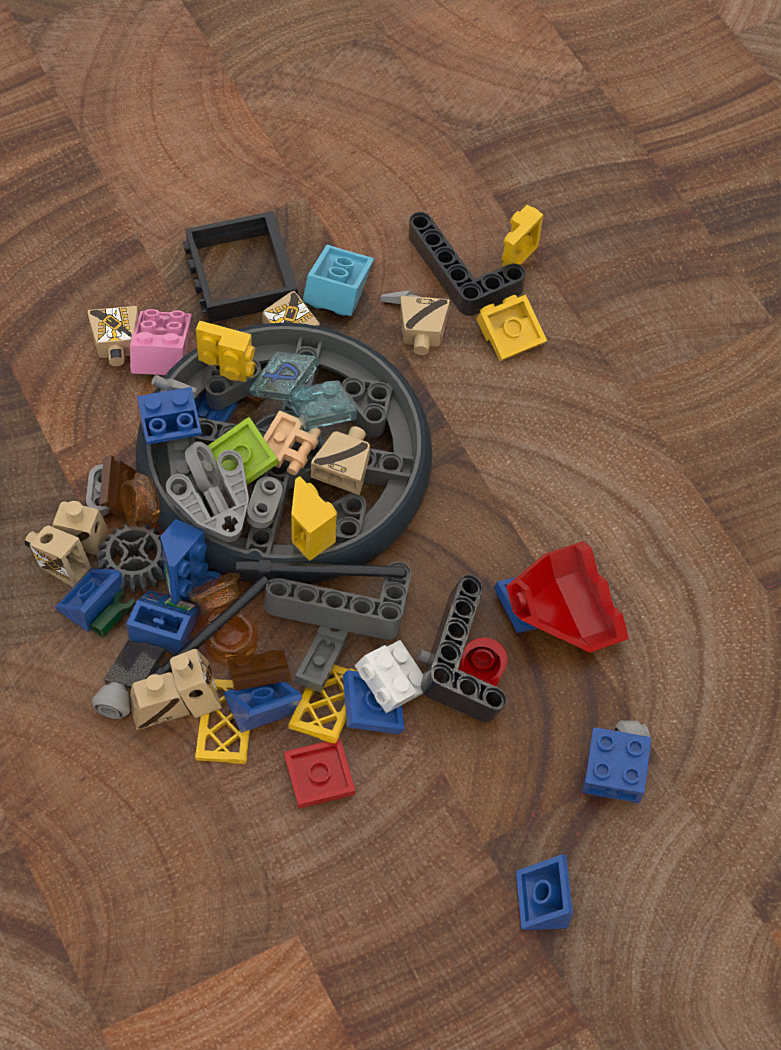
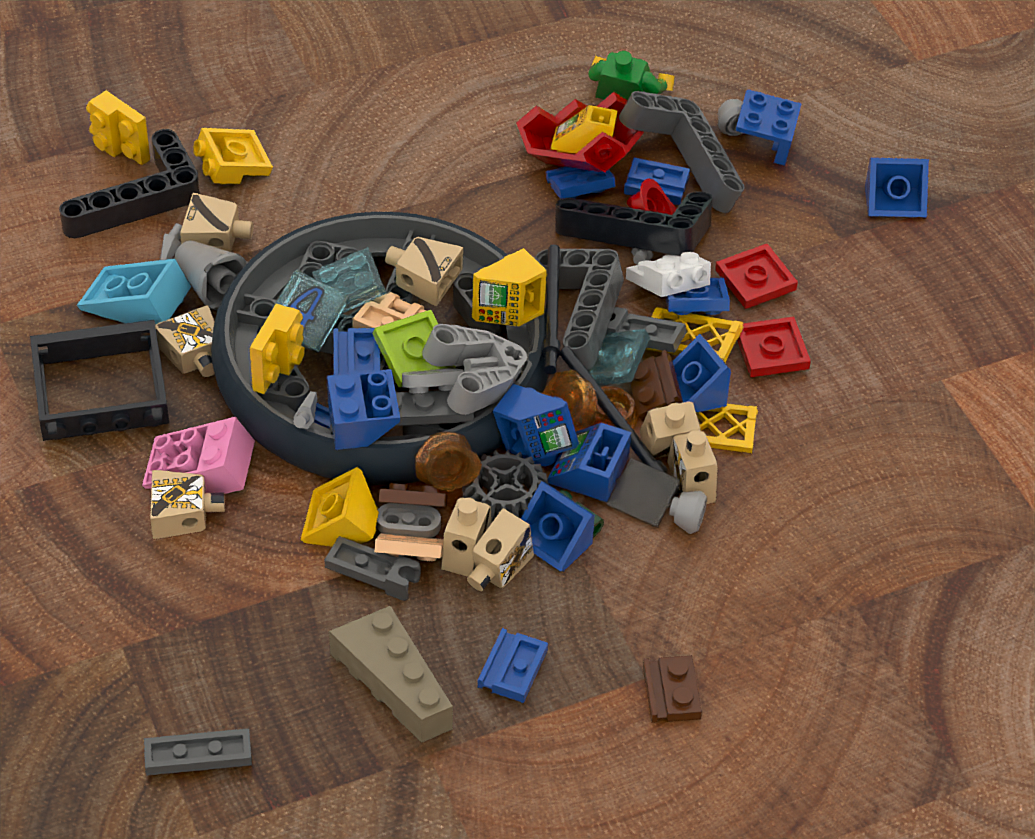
camera: 85 degrees left, 10 degrees down
(53, 468) = (373, 567): none -> dark grey plate
(67, 484) = (423, 548): none -> light nougat plate
(101, 439) = (341, 509): none -> yellow slope
(229, 412) = (355, 351): none -> blue plate
(284, 635) = (619, 357): none -> clear light blue plate
(364, 320) = (208, 270): none -> light grey cone
(411, 759) = (756, 276): none -> red plate
(531, 670) = (669, 177): none -> blue plate
(566, 597) = (583, 128): none -> yellow slope
(580, 698) = (694, 139): none -> dark grey beam
(658, 636) = (625, 75): none -> green torso

